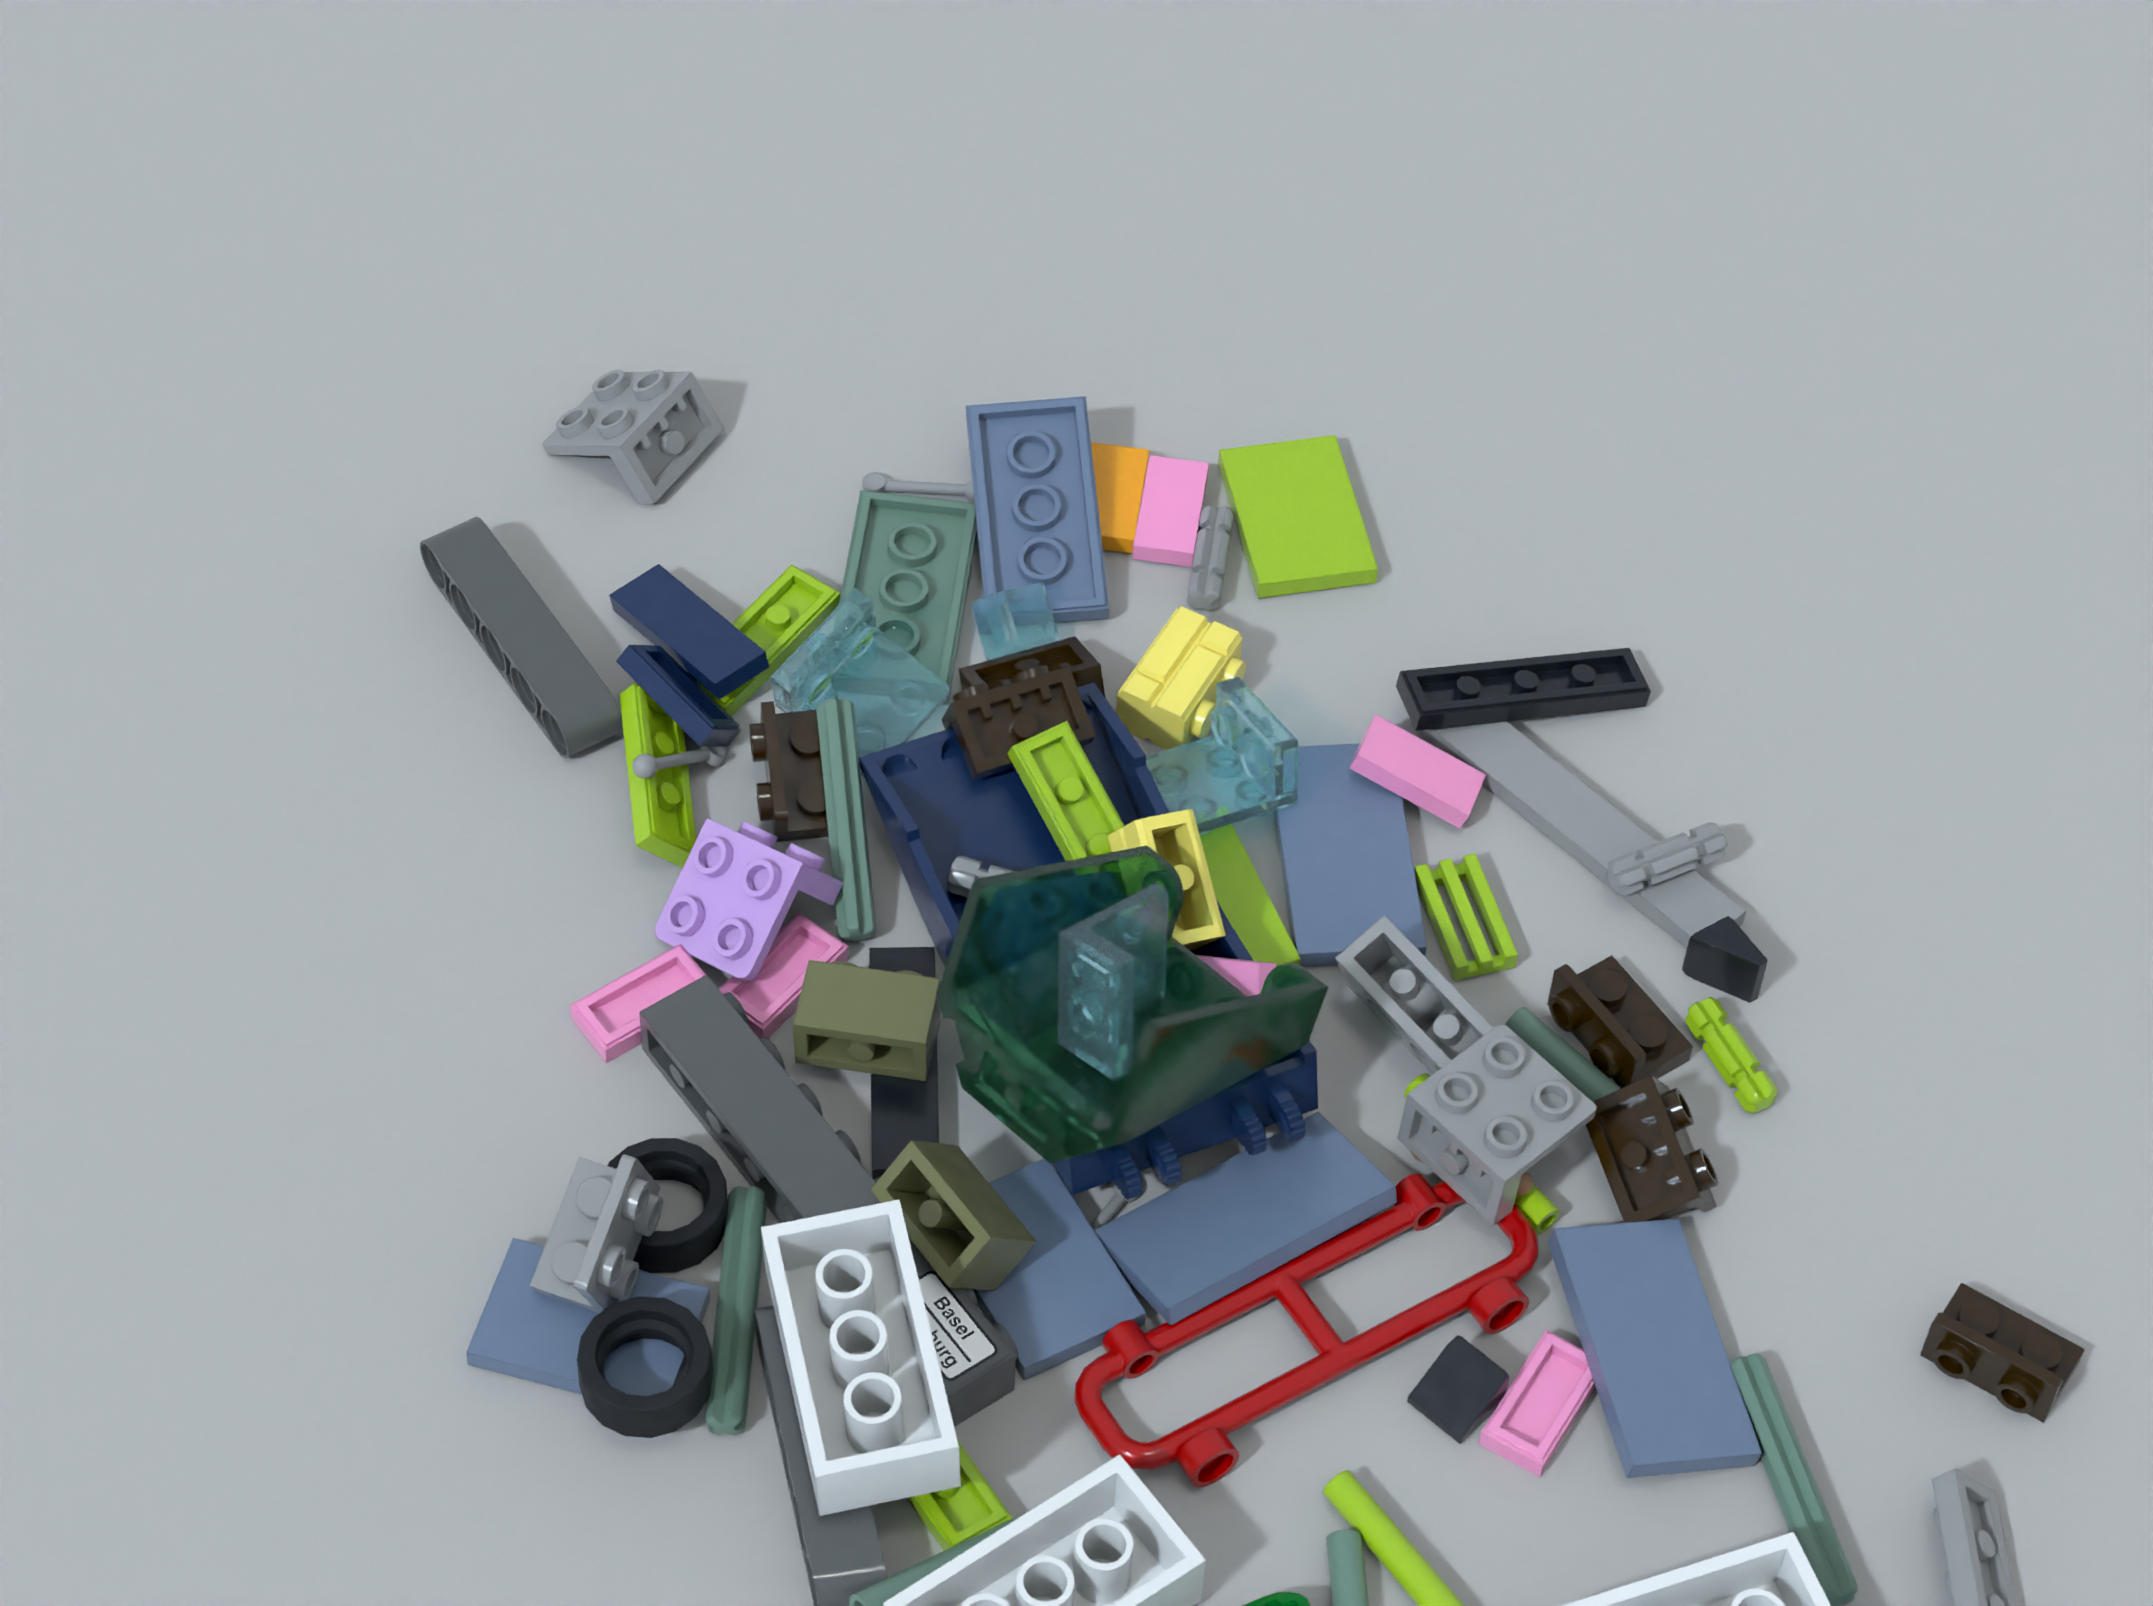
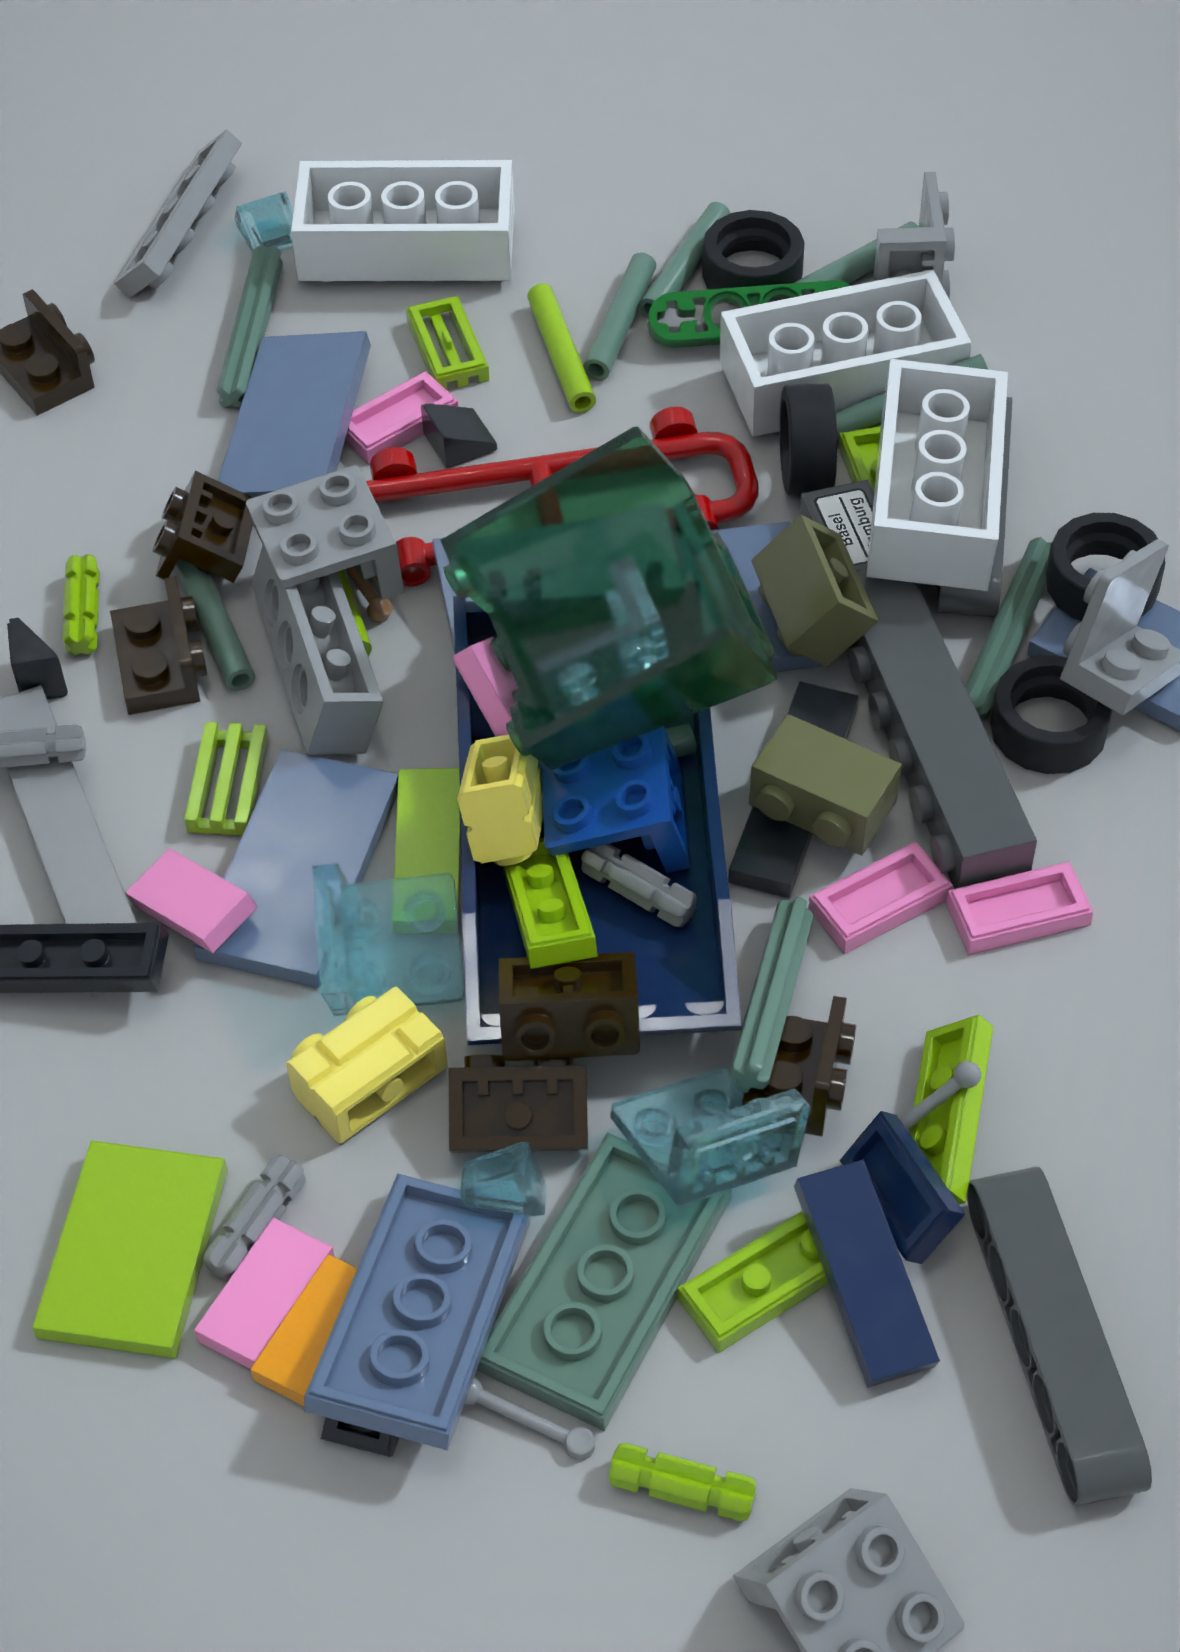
camera: 155 degrees left, 0 degrees up
(738, 895) = (893, 948): lavender bracket -> none
(784, 472) = (682, 1481): none -> lime axle
(1035, 1439) = (808, 438): none -> black tyre
(1526, 1548) = (455, 370): none -> lime tile

